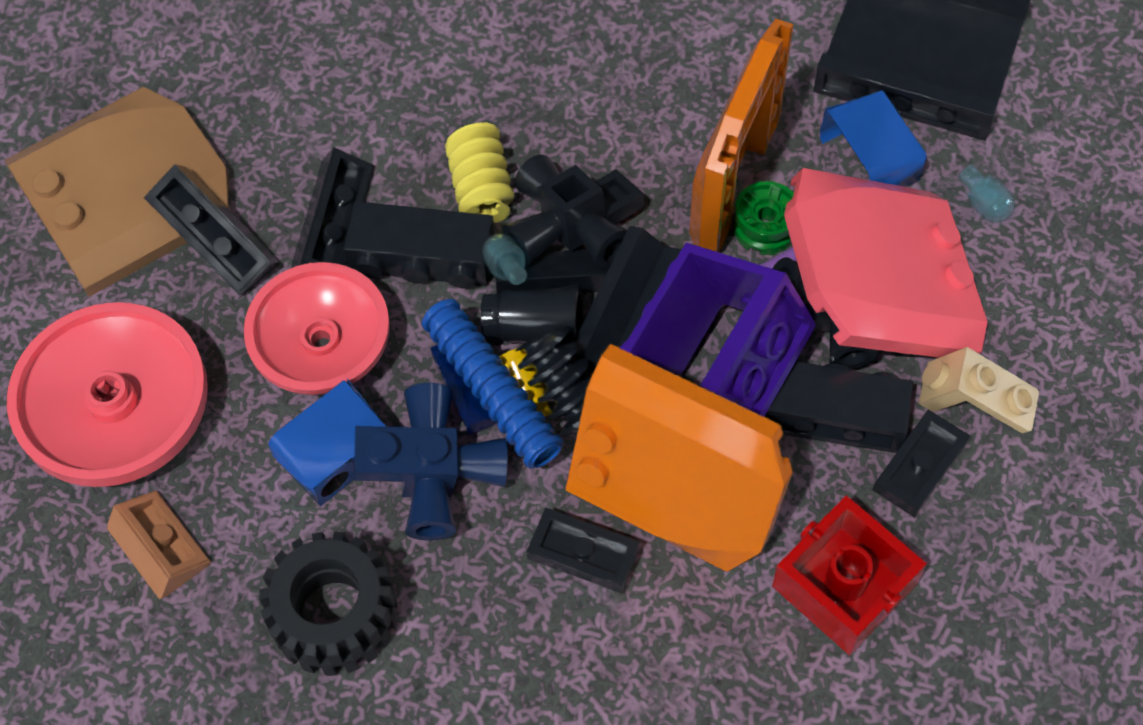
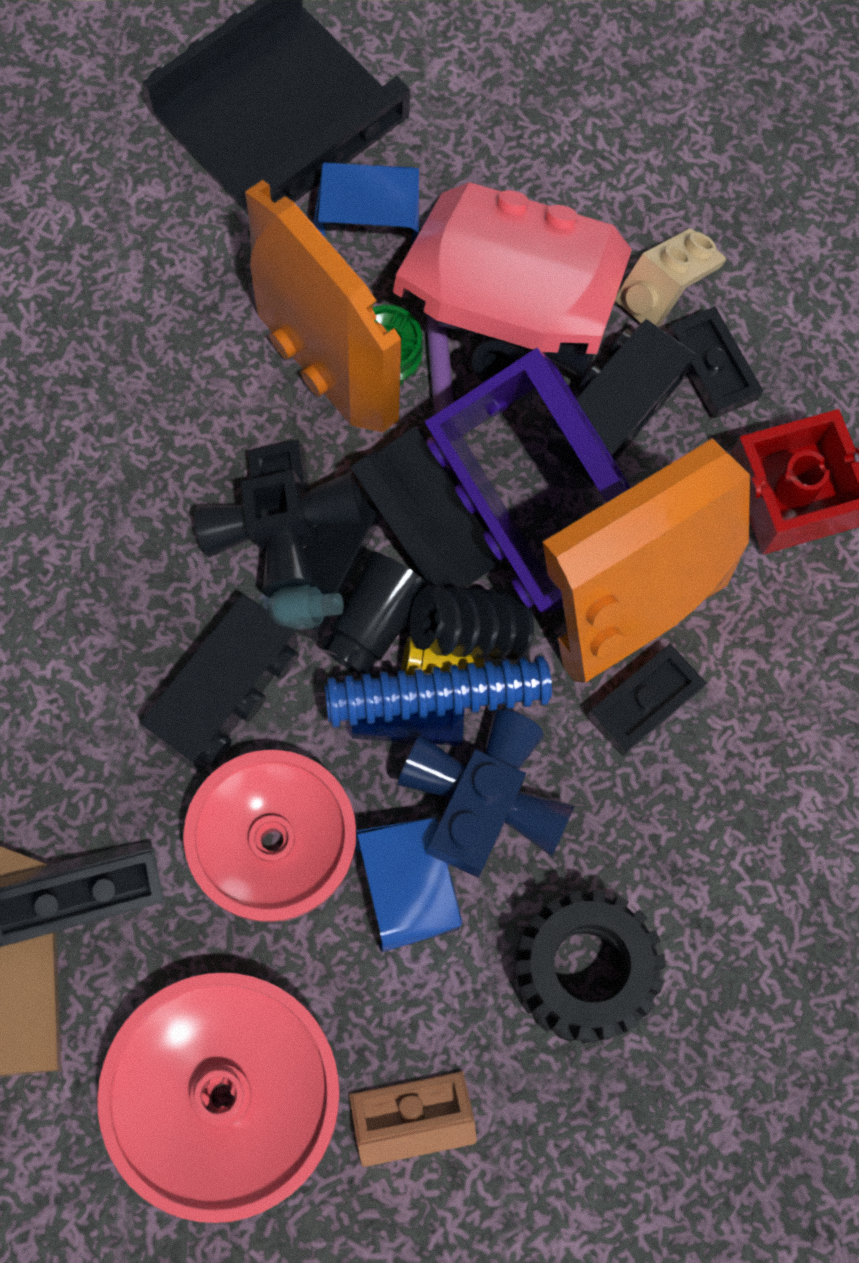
camera: 70 degrees left, 10 degrees up
(327, 220) = (120, 760): black slope -> none
(479, 171) = (171, 584): light yellow piece -> none
(988, 195) = (474, 148): clear light blue cylinder -> none

